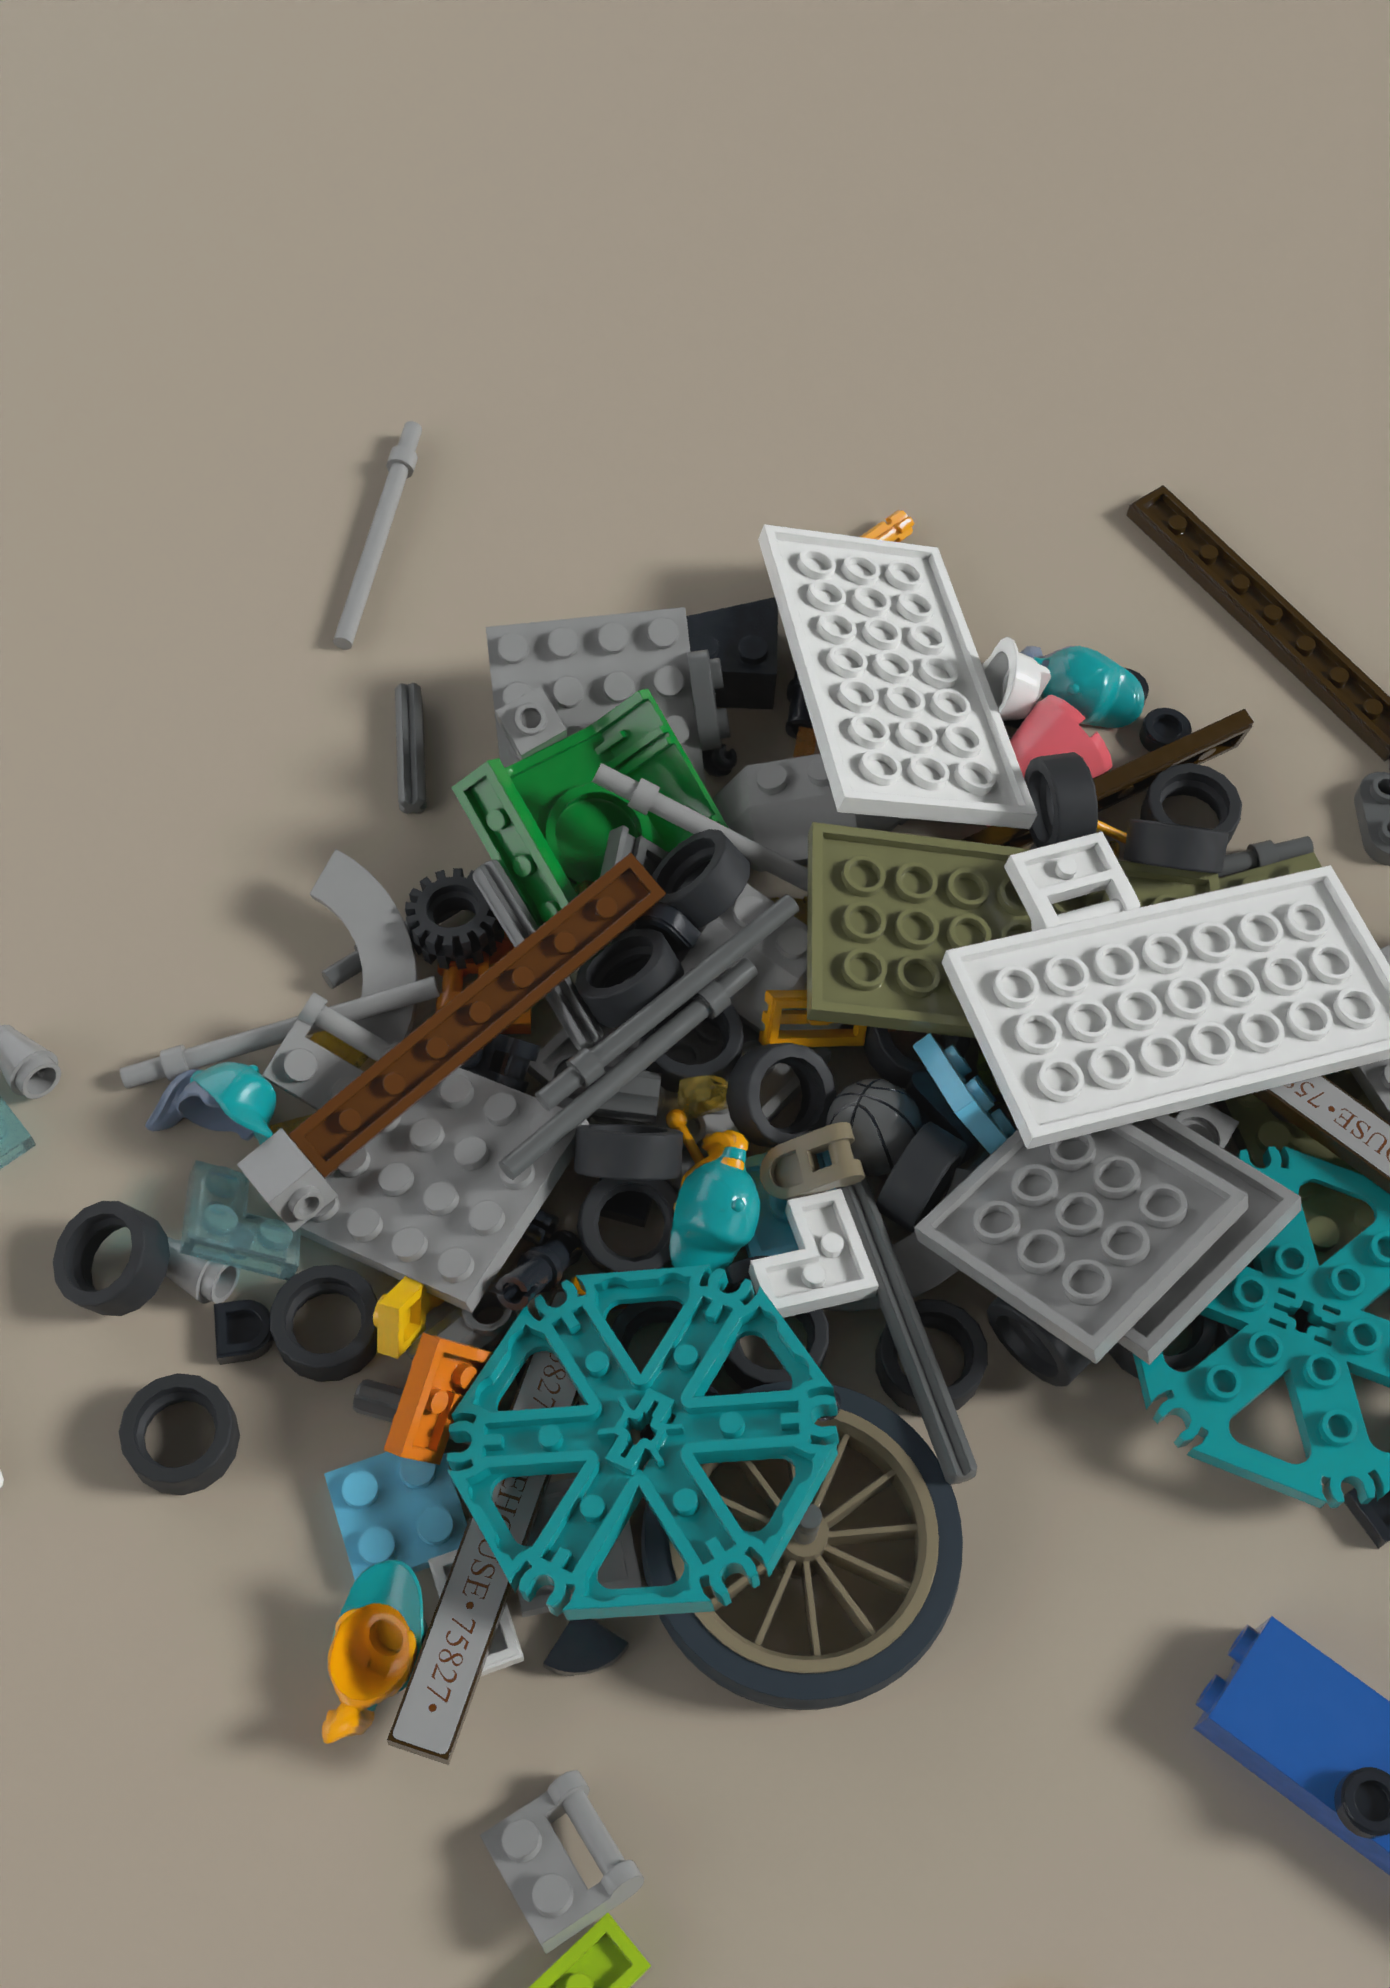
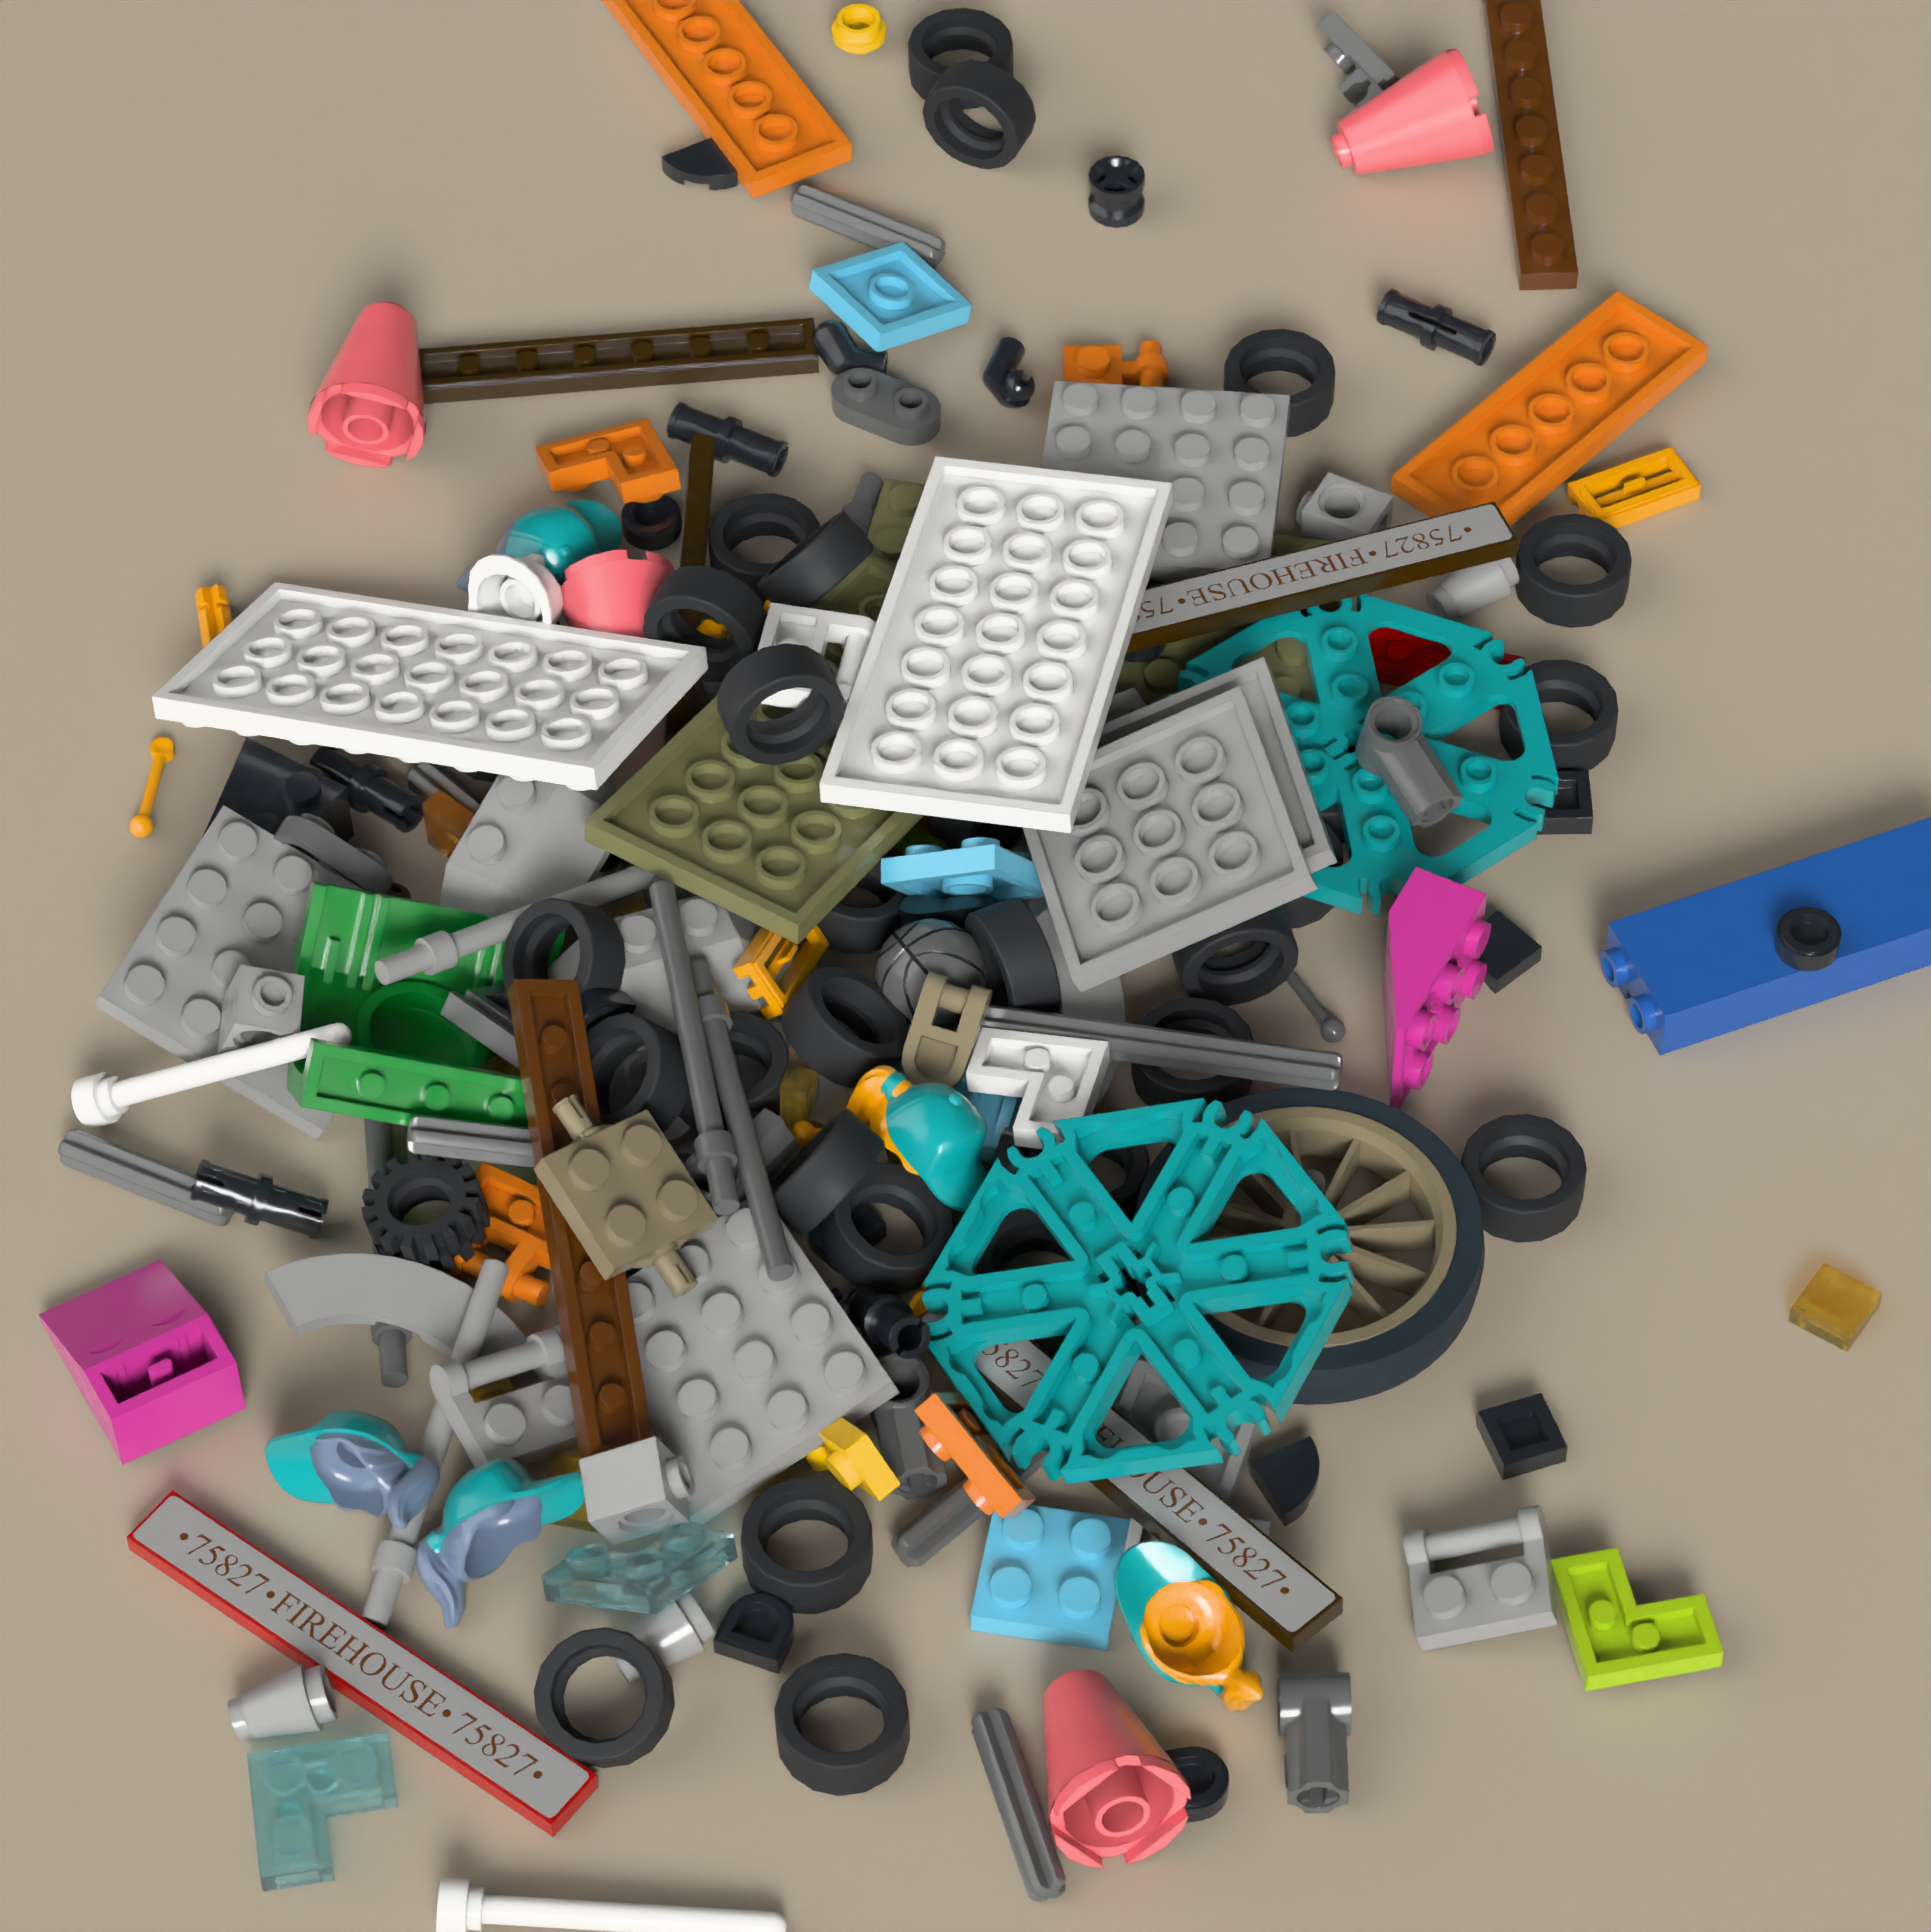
camera: 55 degrees left, 10 degrees down
(85, 1089) = (364, 1663): none -> light grey tile
(174, 1602) = (1018, 1805): none -> dark grey axle
(219, 1649) = (1106, 1774): none -> coral cone
(232, 1005) = (355, 1465): none -> hair
(251, 823) = (145, 1360): none -> dark pink slope
(259, 1724) = (1206, 1779): none -> black tile
(357, 1795) = (1315, 1724): none -> dark grey piece
(417, 816) = (258, 1199): none -> black pin
(452, 689) = (104, 1098): none -> white piece
(509, 1029) = (626, 1195): none -> dark tan plate
(693, 588) = (161, 751): none -> light orange hinge
(732, 1817) = (1521, 1436): none -> black tile
(1010, 867) = (766, 674): none -> black tyre
(1027, 1668) = (1535, 1139): none -> black tyre
(1036, 1446) = (1331, 1028): none -> dark grey hinge
(1130, 1487) = (1428, 971): none -> dark pink slope
(1131, 504) = (373, 391): none -> coral cone
(1197, 679) = (624, 453): none -> orange plate
(1203, 1542) = (1507, 952): none -> black tile
(1270, 737) = (731, 438): none -> black pin
(1290, 1369) = (1406, 764): none -> dark grey piece

